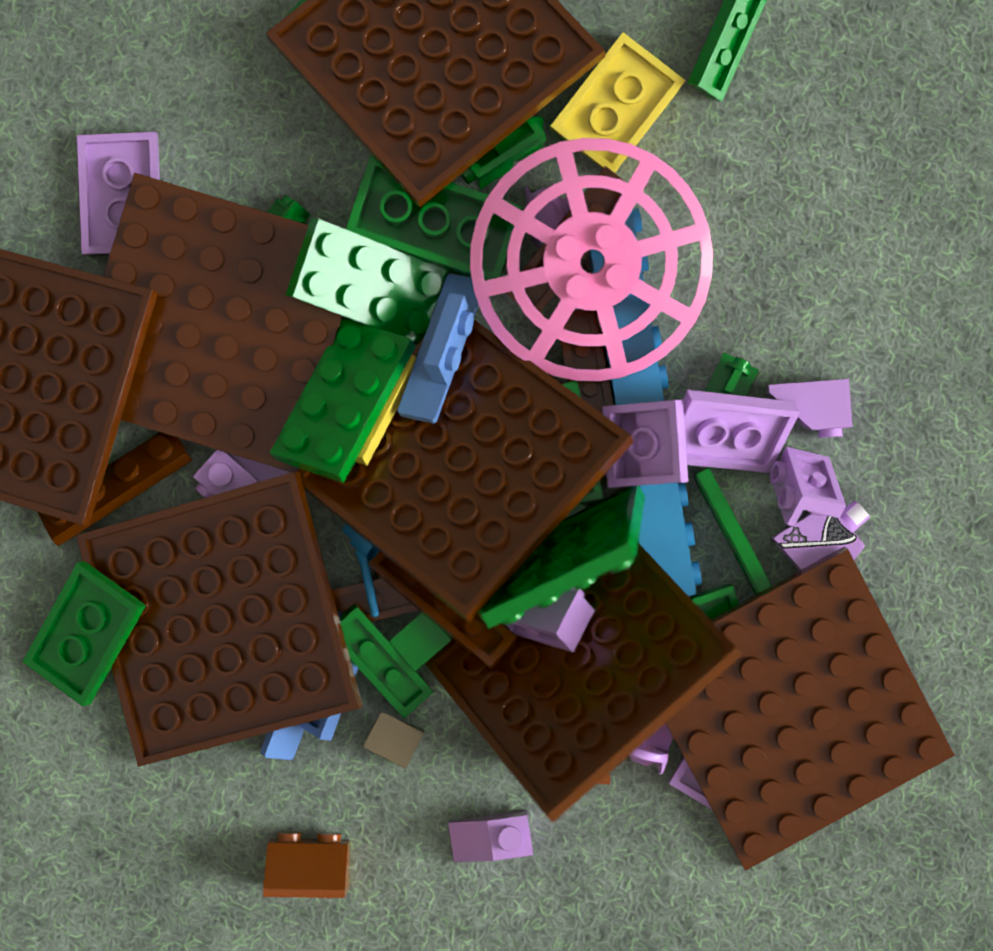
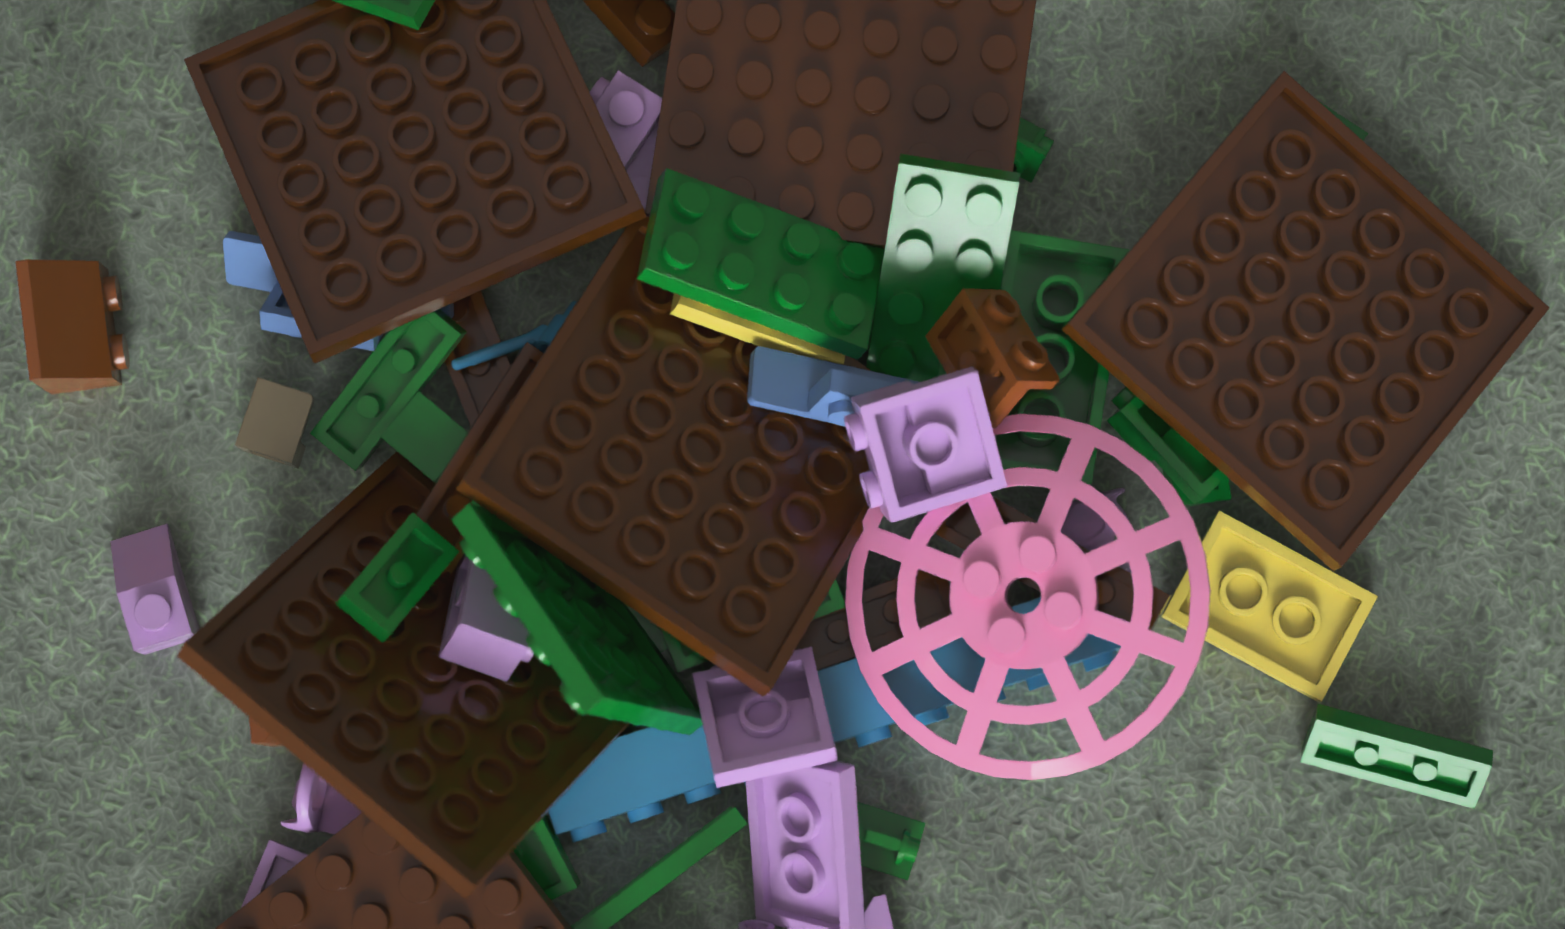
camera: 85 degrees right, 5 degrees down
(428, 257) = (992, 336): none -> dark orange bracket
(484, 309) = (925, 444): none -> lavender plate
(517, 671) = (397, 577): none -> green plate

